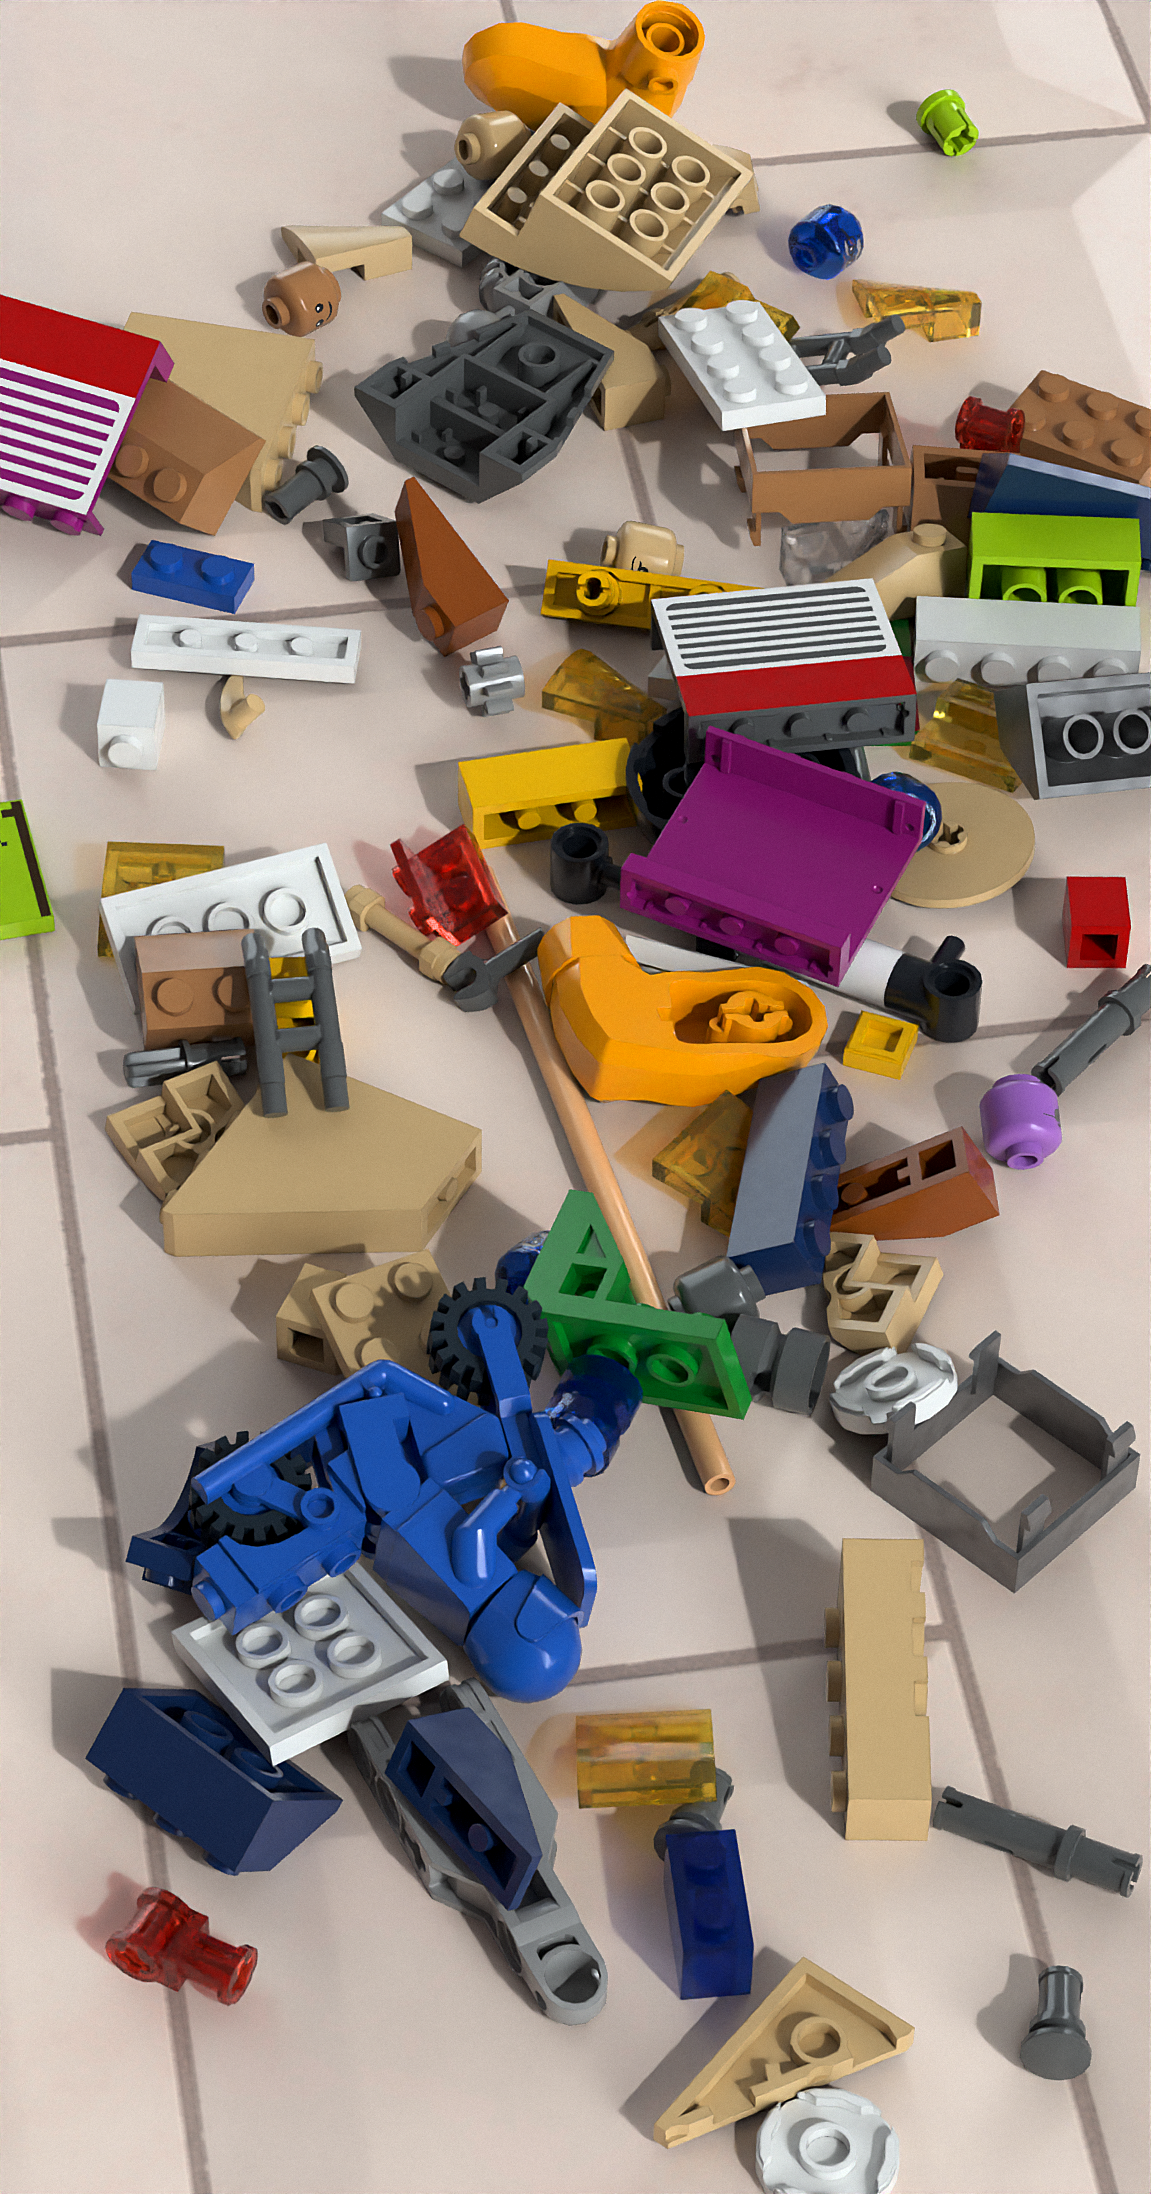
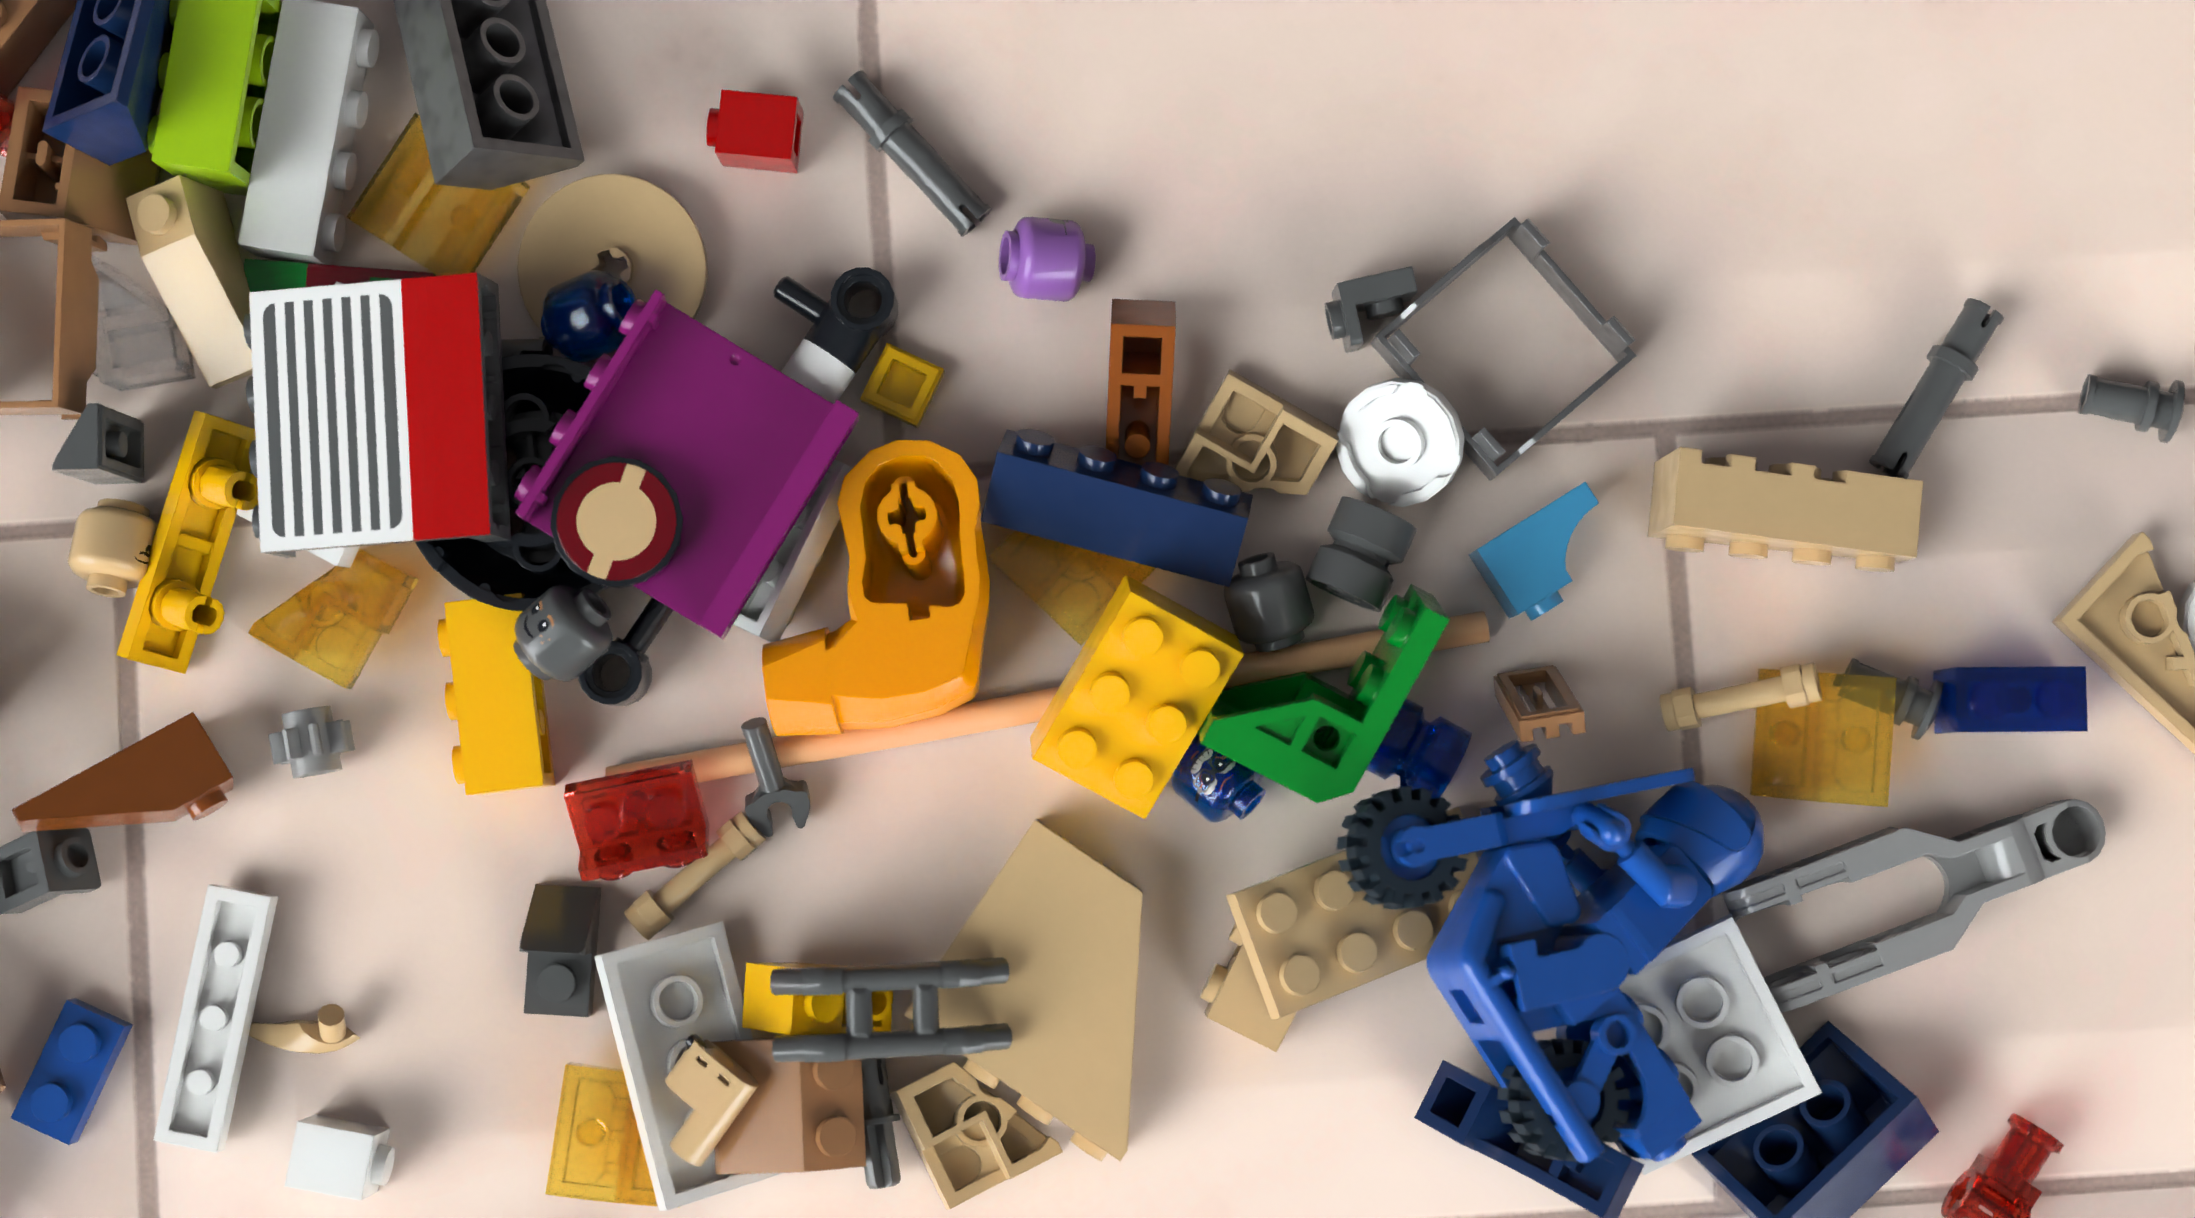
camera: 85 degrees left, 40 degrees up
(210, 915) = (714, 1089): none -> tan piece
(352, 846) = (561, 950): none -> dark grey slope
(471, 1796) = (1910, 909): dark blue slope -> none
(606, 796) = (563, 633): none -> dark grey head
(645, 1175) = (1135, 697): none -> yellow brick
(646, 1493) = (1523, 722): none -> medium nougat tile
(693, 1701) = (1685, 709): none -> tan bar
(714, 812) = (617, 522): none -> tile
(727, 532) = (103, 448): none -> dark grey slope
(798, 1503) = (1528, 560): none -> dark azure arch
(1031, 1346) = (1376, 294): none -> dark grey bracket

